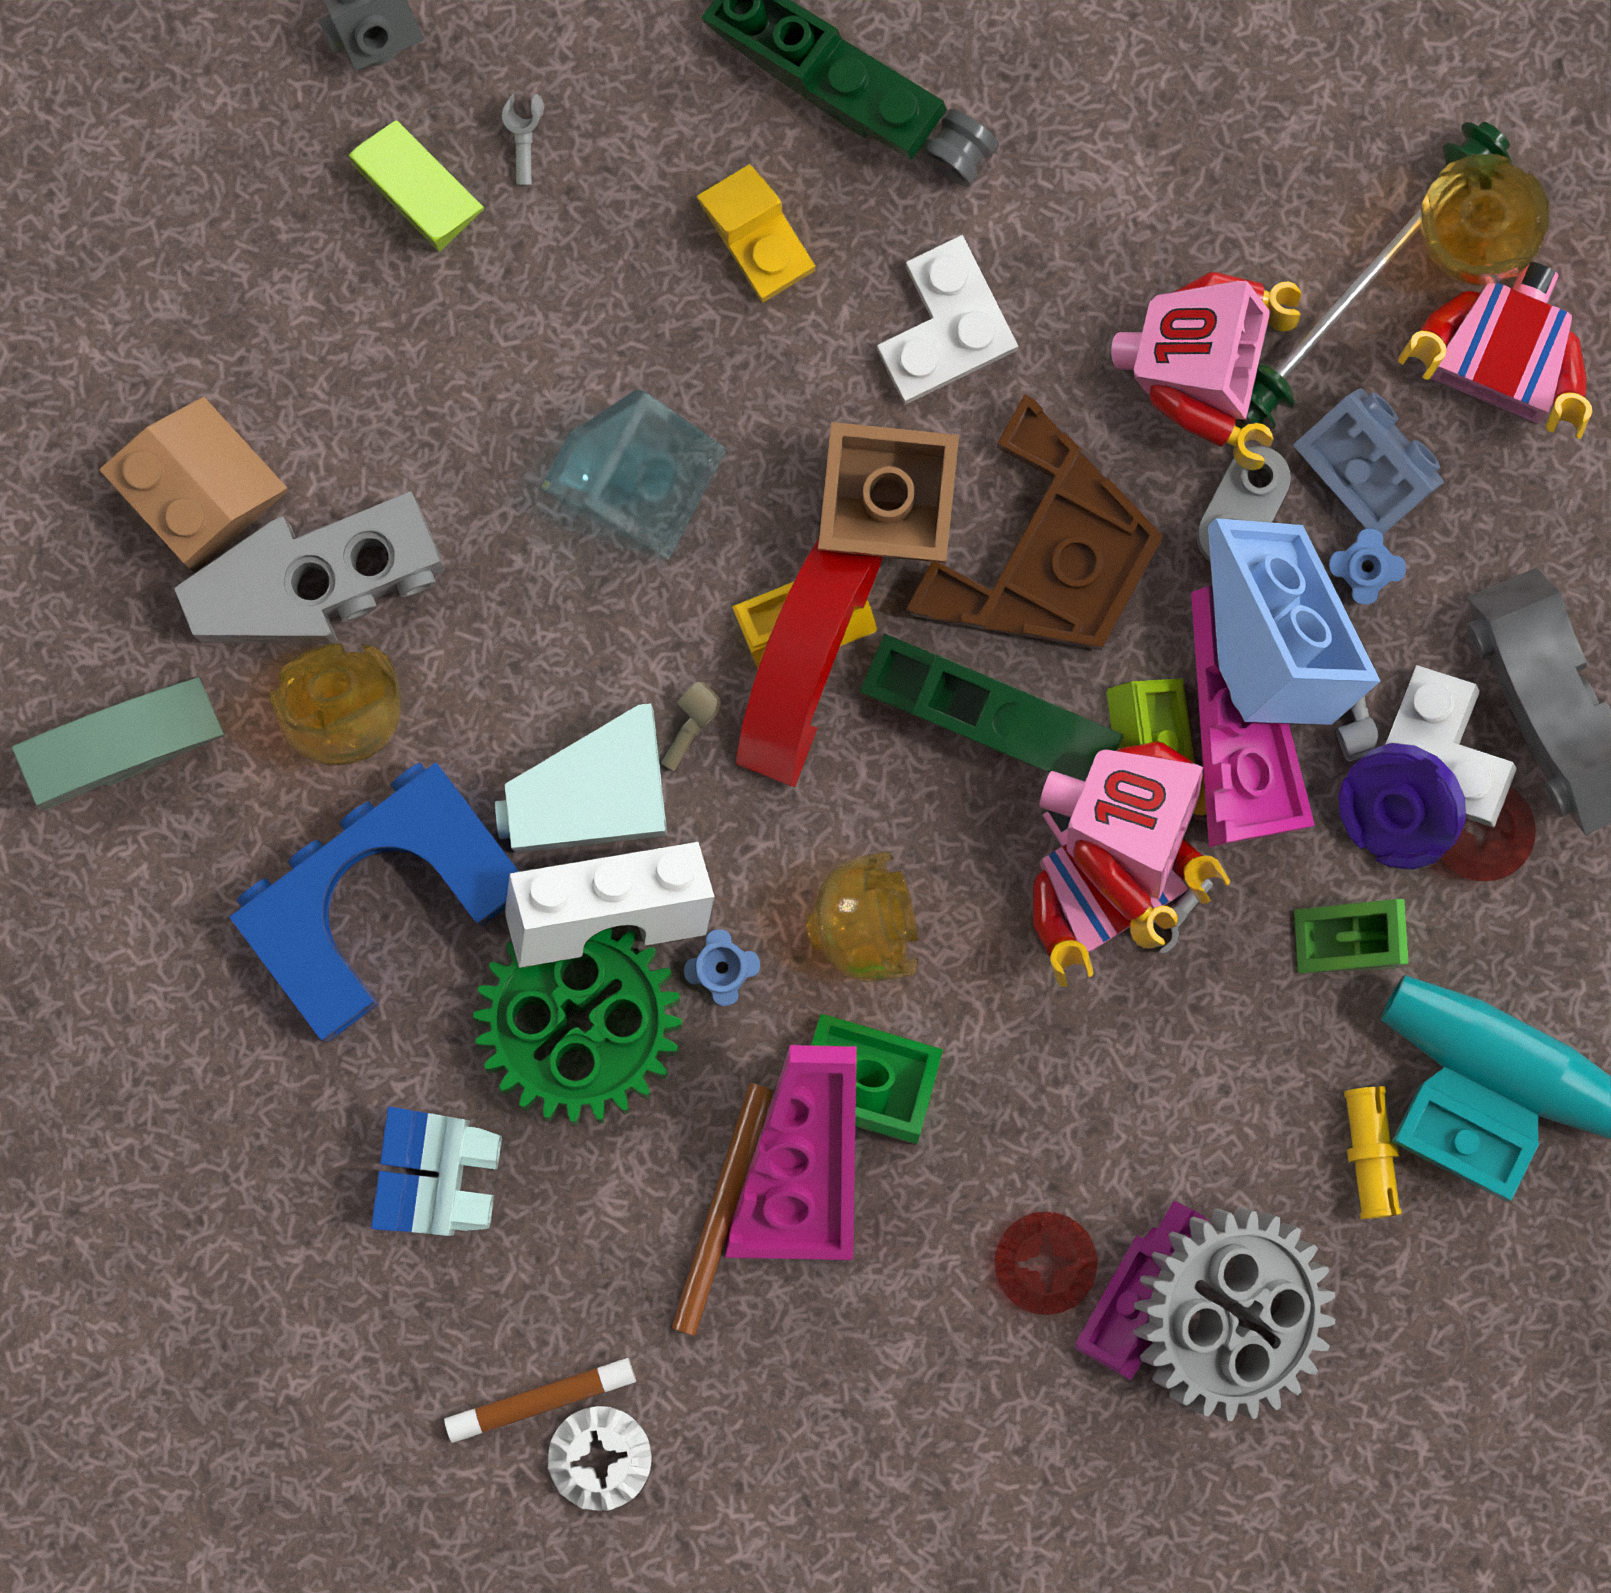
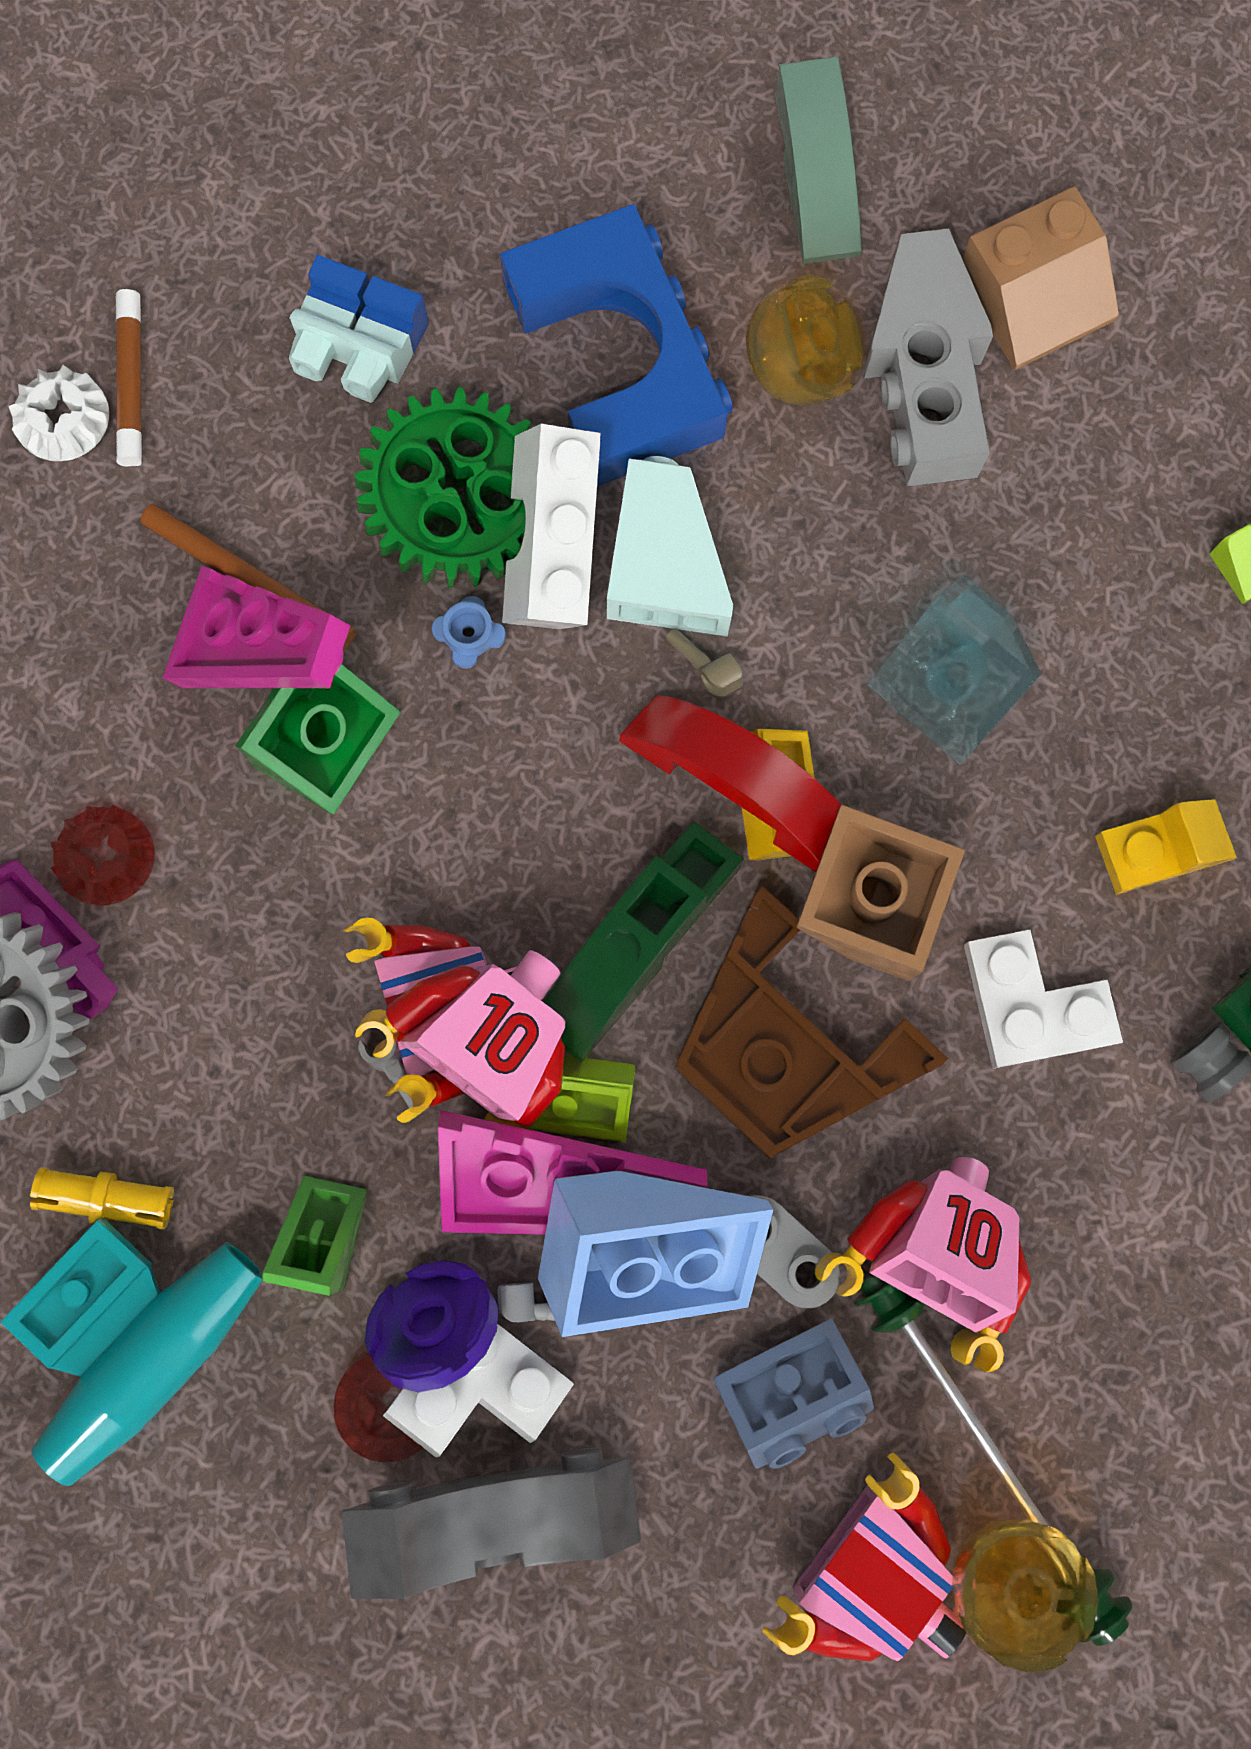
camera: 100 degrees right, 5 degrees down
(865, 920) = (469, 767): clear yellow cylinder -> none
(1367, 584) = (706, 1367): medium blue plate -> none

